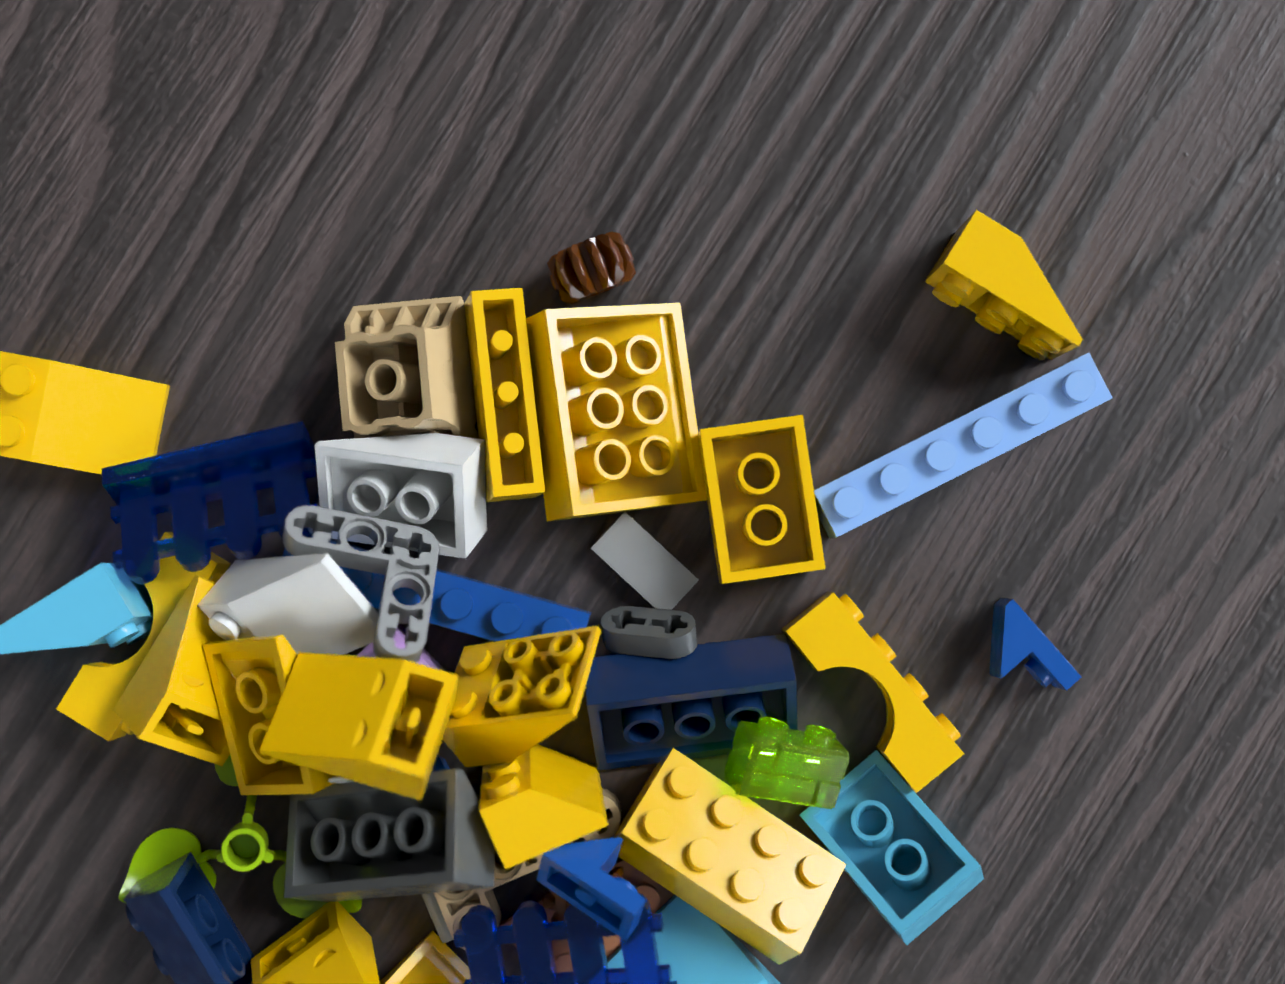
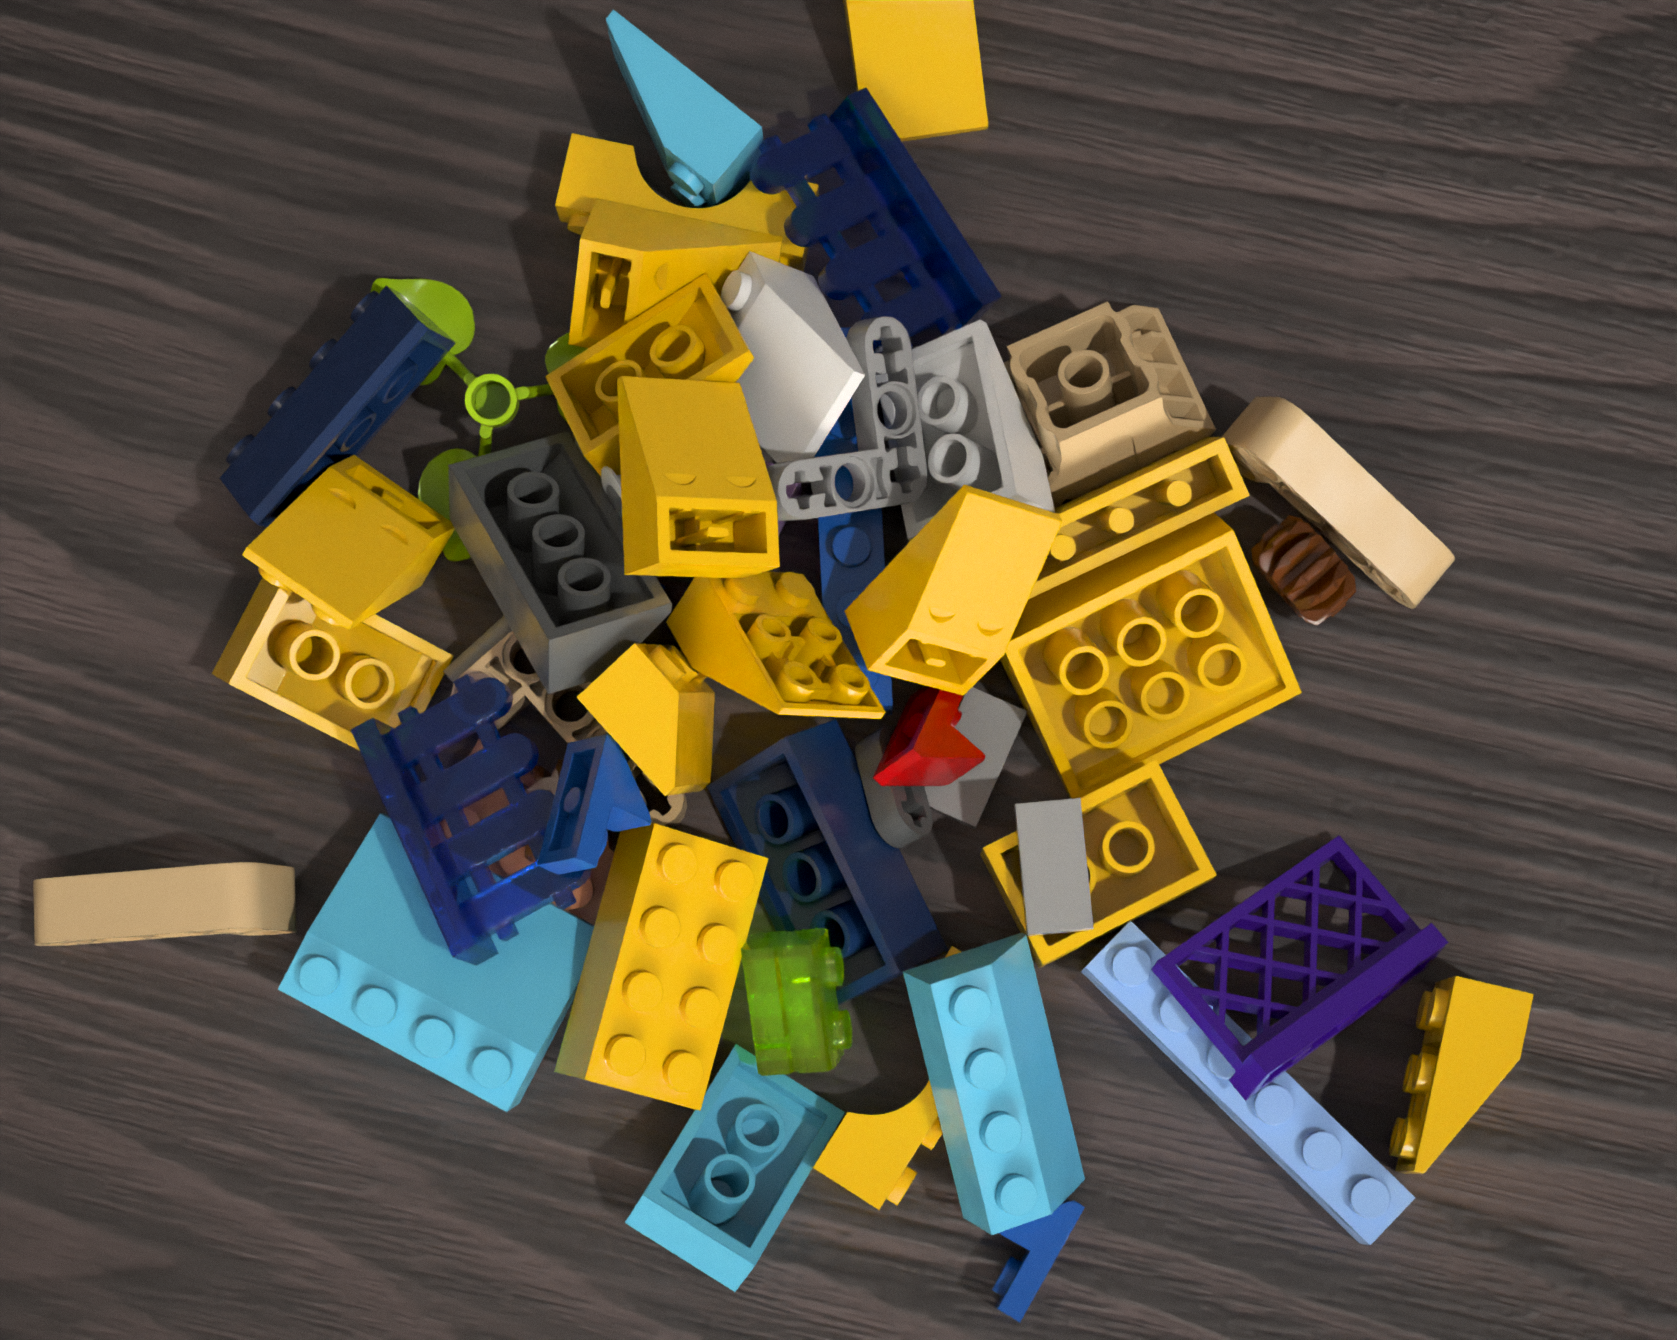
camera: 75 degrees right, 5 degrees down
(521, 540) = (954, 591): none -> yellow slope
(543, 222) = (1294, 455): none -> tan beam
(624, 598) = (926, 743): none -> red slope
(756, 535) = (1053, 866): none -> light grey tile
(901, 634) = (996, 1083): none -> medium azure slope
(931, 373) = (1321, 1013): none -> dark purple fence

